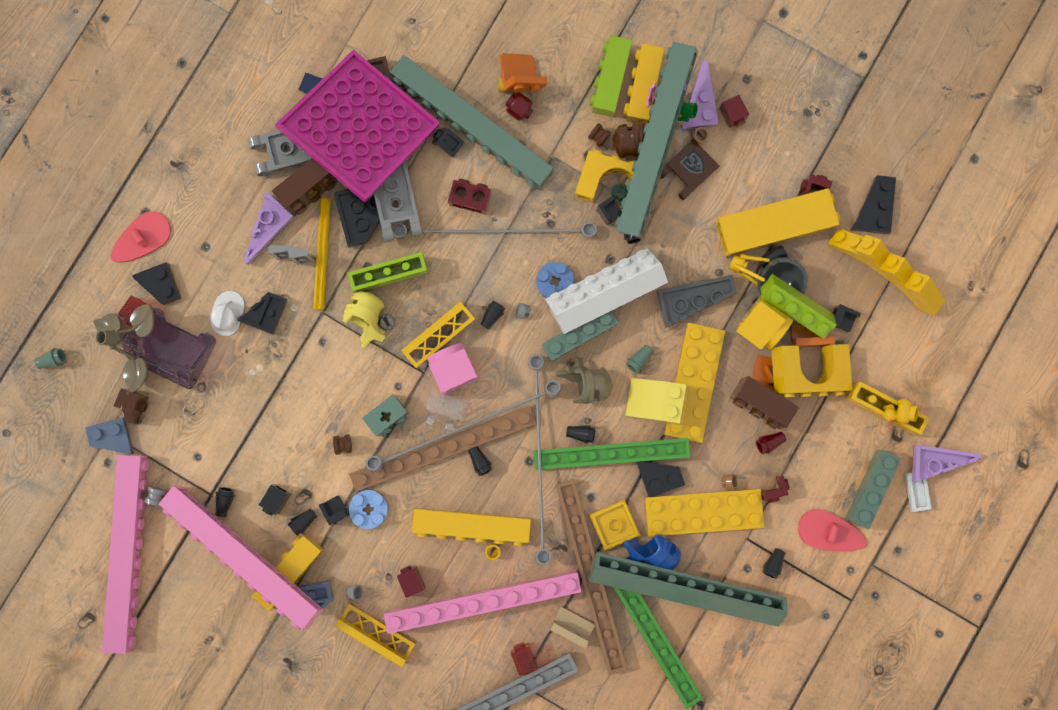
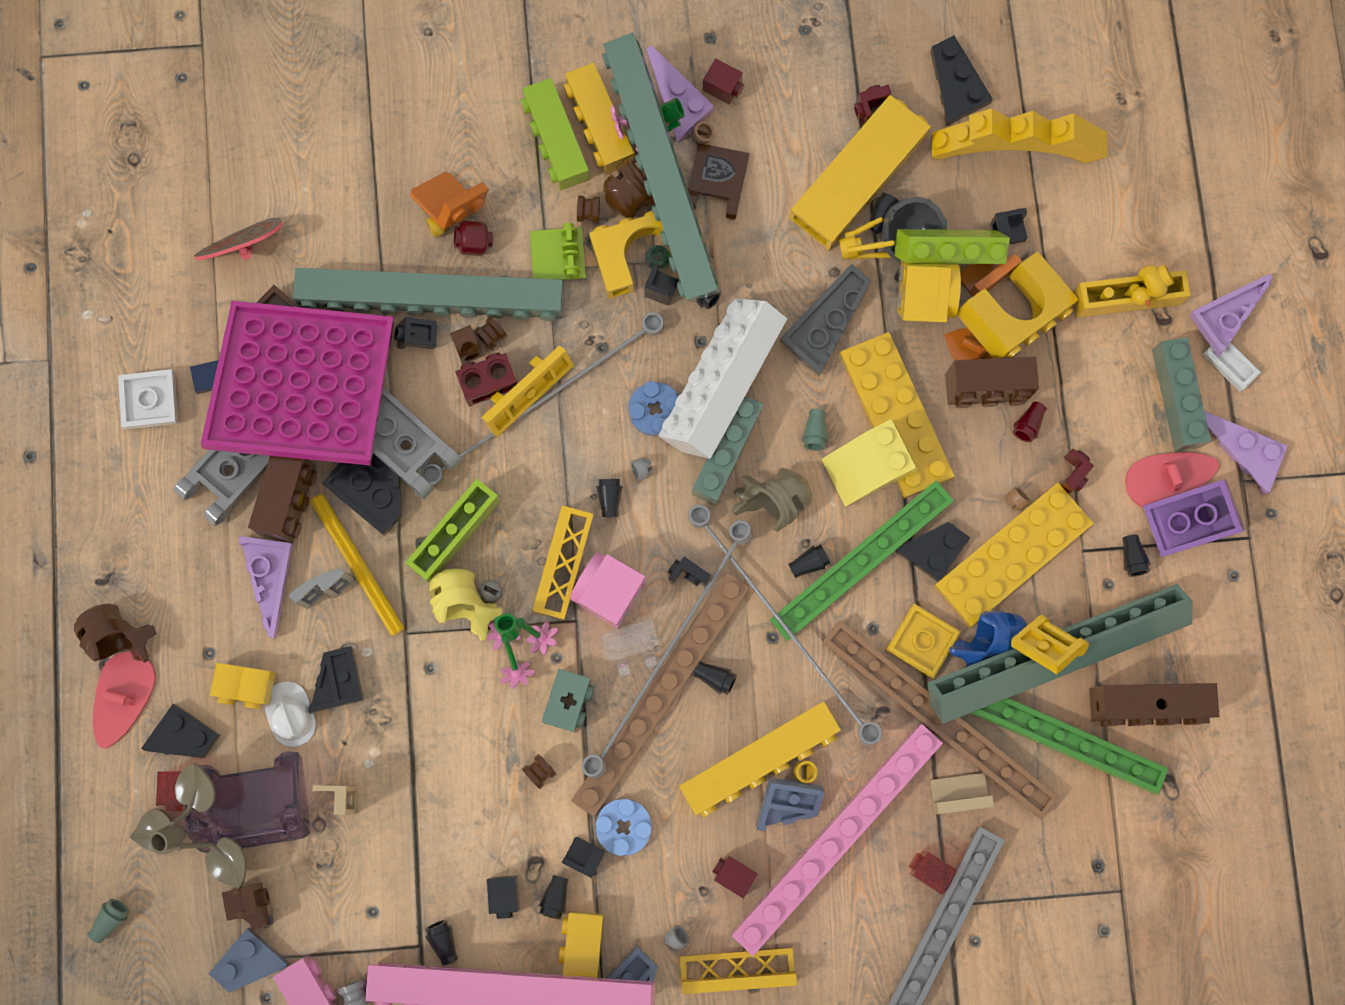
camera: 40 degrees left, 5 degrees down
(155, 195) = (105, 633): none -> reddish brown piece
(211, 278) = (242, 684): none -> yellow brick
(223, 382) = (344, 798): none -> tan panel
(269, 75) = (148, 399): none -> white plate
(377, 353) = (508, 629): none -> plant
(384, 16) = (241, 240): none -> shield
(471, 168) = (466, 344): none -> reddish brown leg
(471, 562) = (788, 802): none -> sand blue wing
(487, 220) = (527, 391): none -> yellow hinge
(490, 170) = (490, 333): none -> reddish brown wheel
(509, 393) = (694, 573): none -> black bracket
(563, 150) = (558, 253): none -> lime hinge
(678, 582) = (1046, 649): none -> yellow plate
(718, 654) = (1148, 702): none -> reddish brown brick
(826, 566) = (1194, 518): none -> medium lavender slope
(891, 552) = (1252, 451): none -> lavender wing

